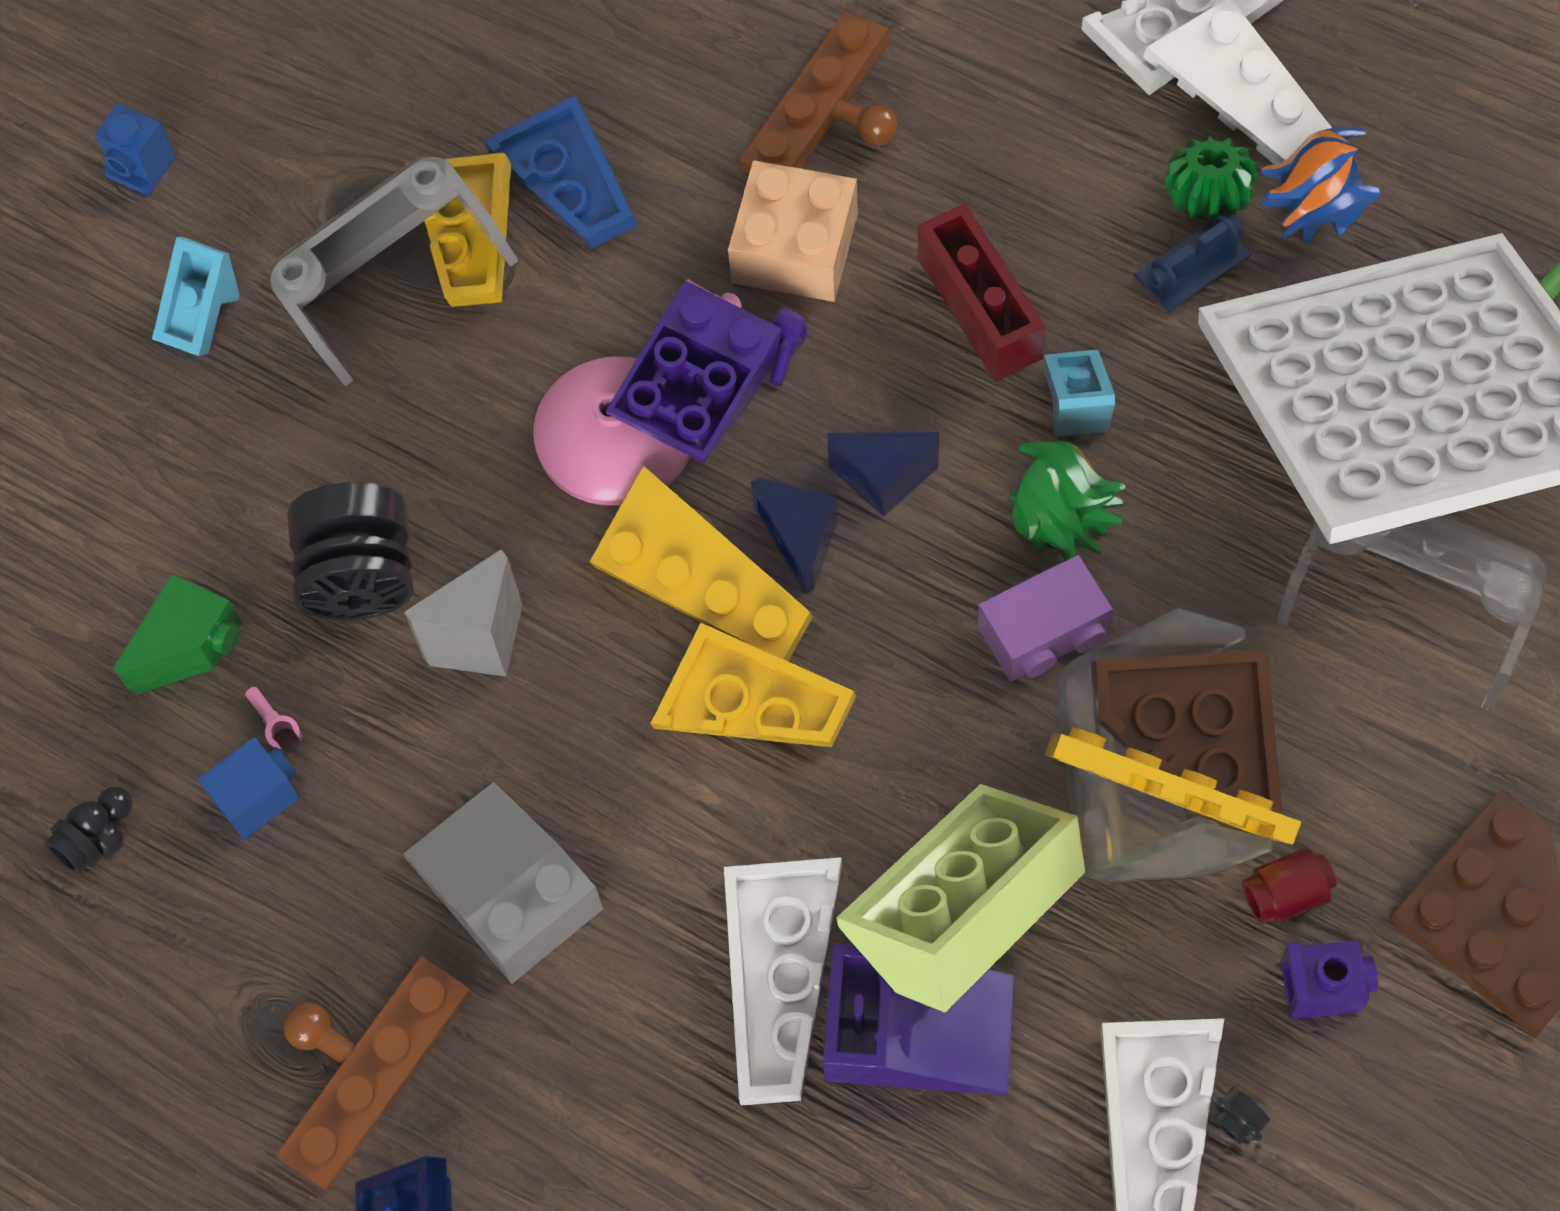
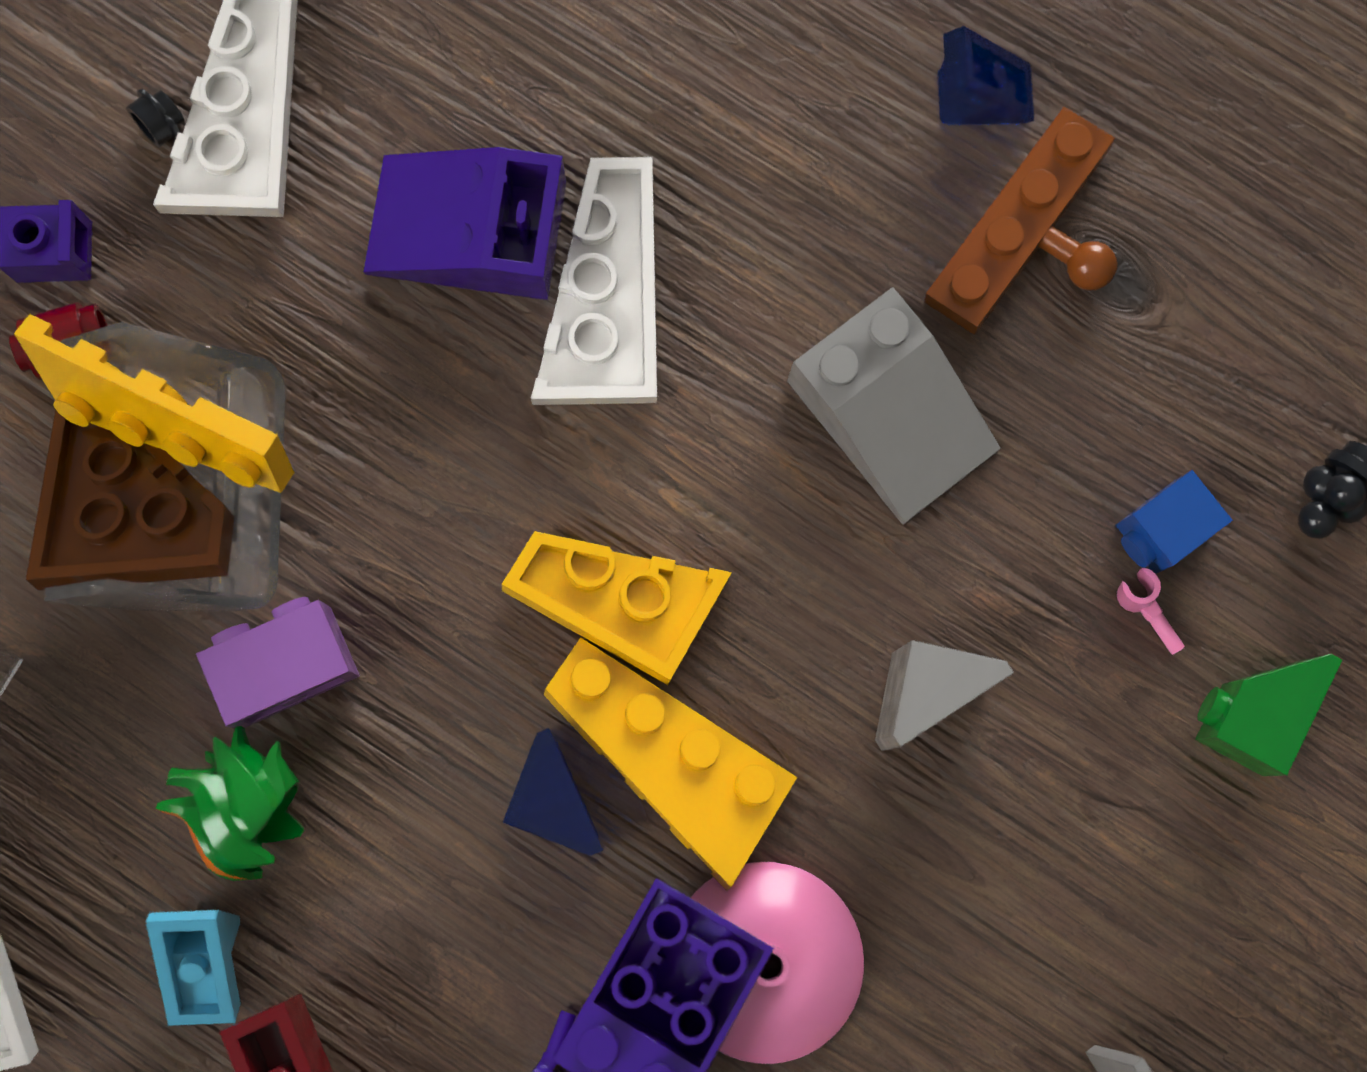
camera: 170 degrees right, 15 degrees up
(349, 551) = (1079, 789): black wheel -> none
(883, 464) = (444, 874): clear blue slope -> none
(964, 894) = (400, 327): yellowish green slope -> none

